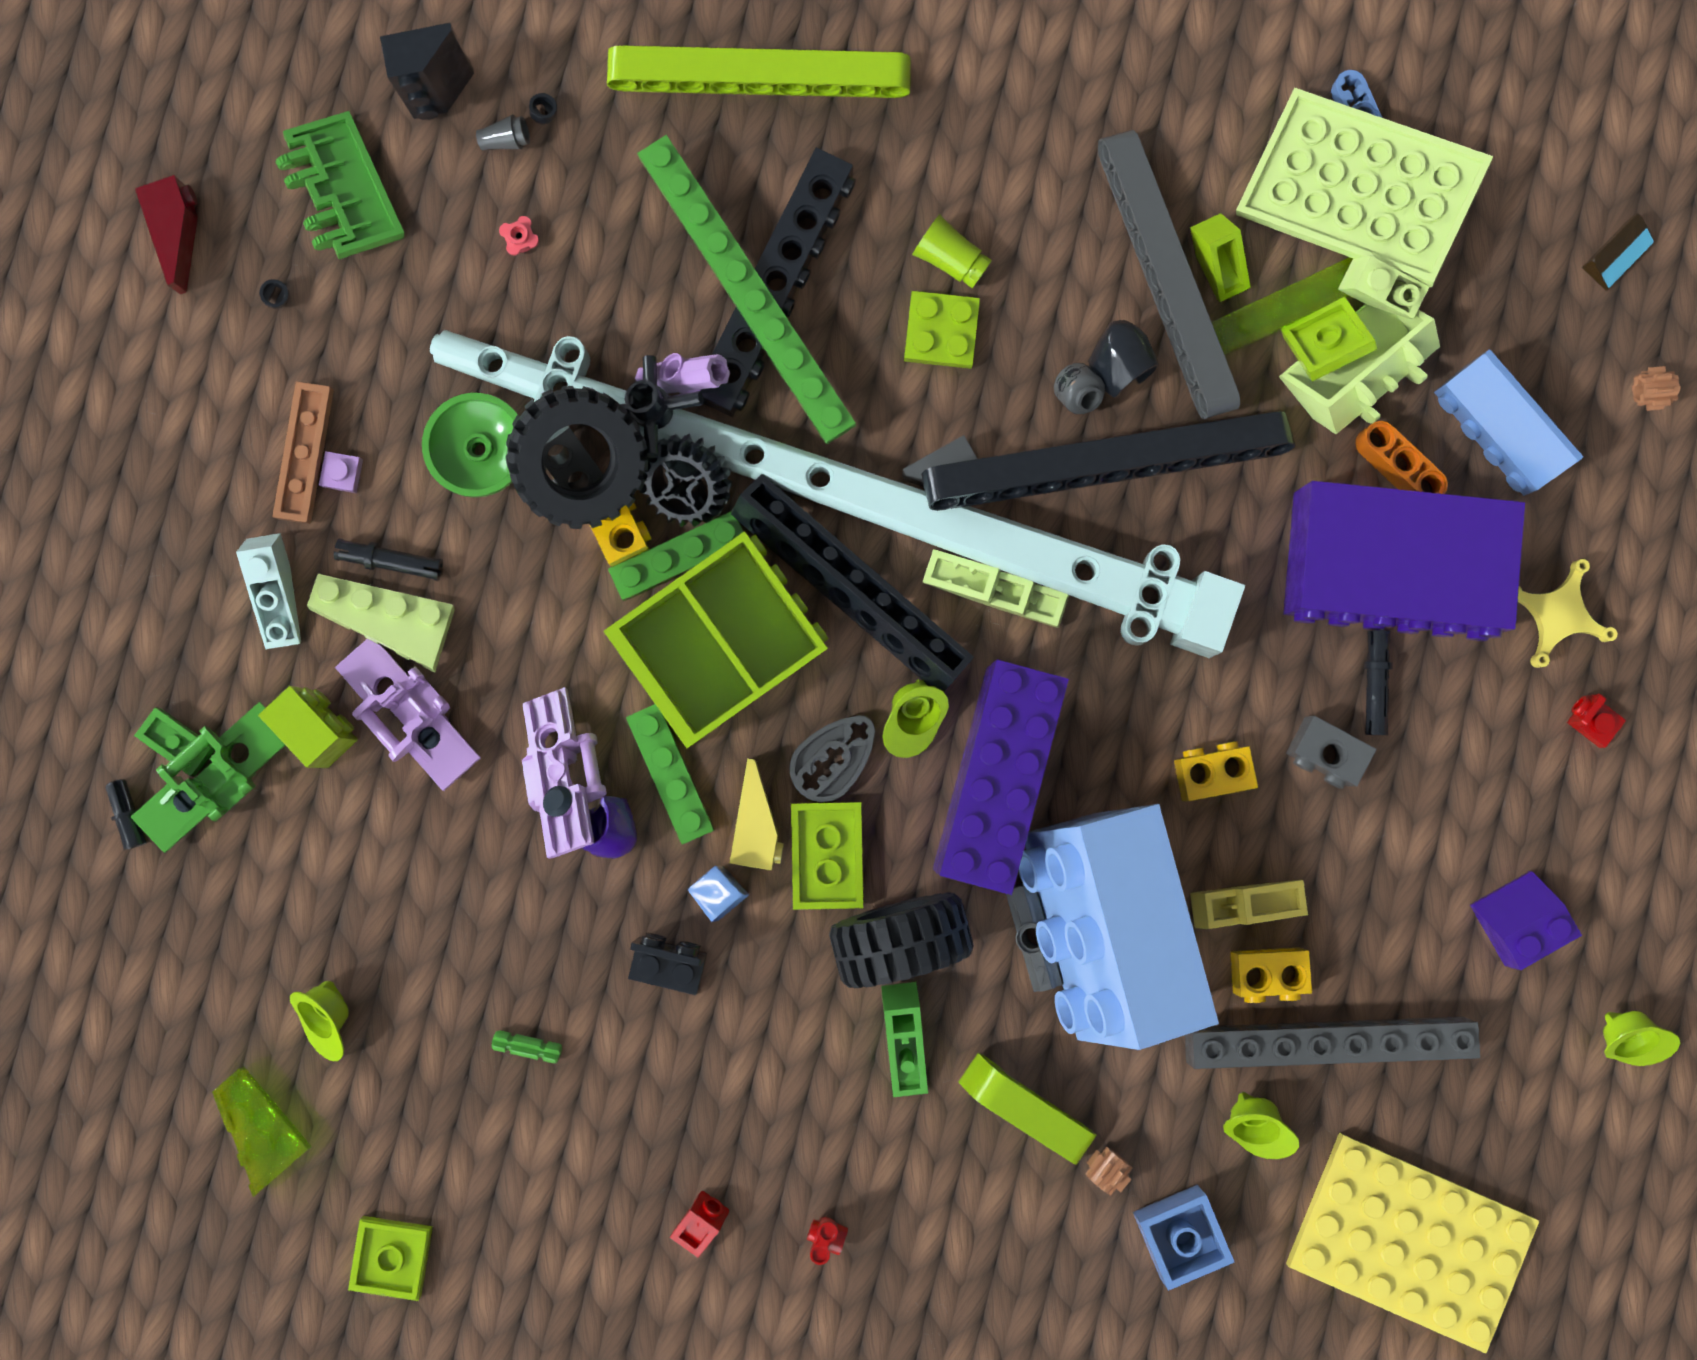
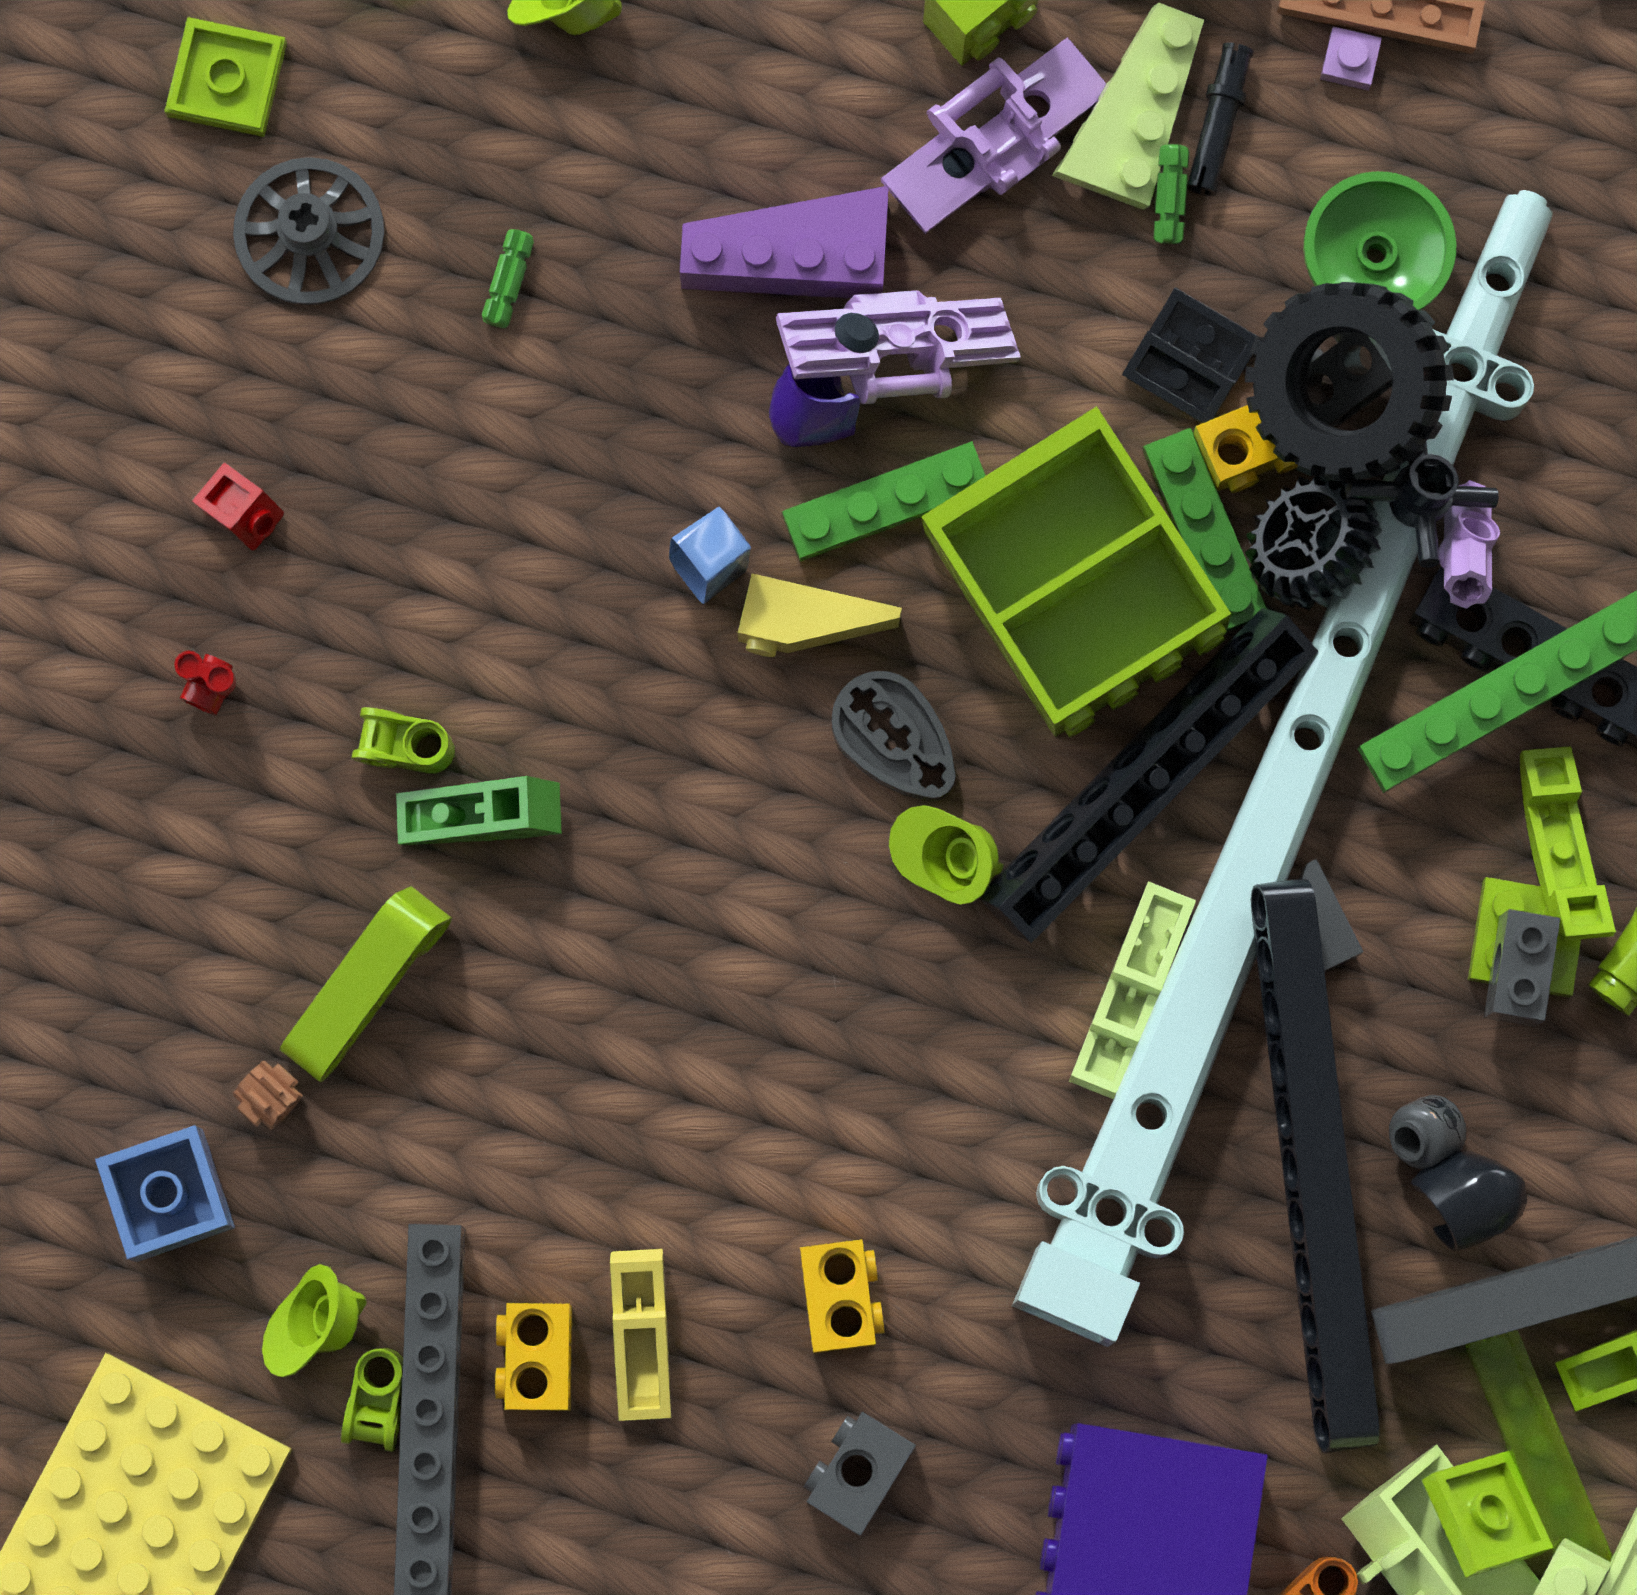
camera: 95 degrees right, 5 degrees down
(443, 590) = (1171, 194): none -> bright green axle
(496, 848) = (791, 249): none -> medium lavender wedge
(498, 1190) = (307, 229): none -> dark grey wheel
(557, 570) = (1191, 356): none -> black slope
(666, 964) = (610, 479): black bracket -> none
(827, 855) = (752, 718): lime plate -> none
(858, 1101) = (392, 740): none -> lime piece
(882, 309) = (1560, 845): none -> lime slope
(901, 940) = (627, 804): black tyre -> none
(969, 328) = (1522, 968): none -> dark grey brick
(1000, 776) = (851, 958): dark purple brick -> none
(1026, 913) = (584, 1017): dark grey piece -> none
(1117, 929) = (625, 1107): light blue brick -> none
(1310, 1081) = (374, 1403): none -> lime piece
(1377, 688) = (960, 1555): black pin -> none

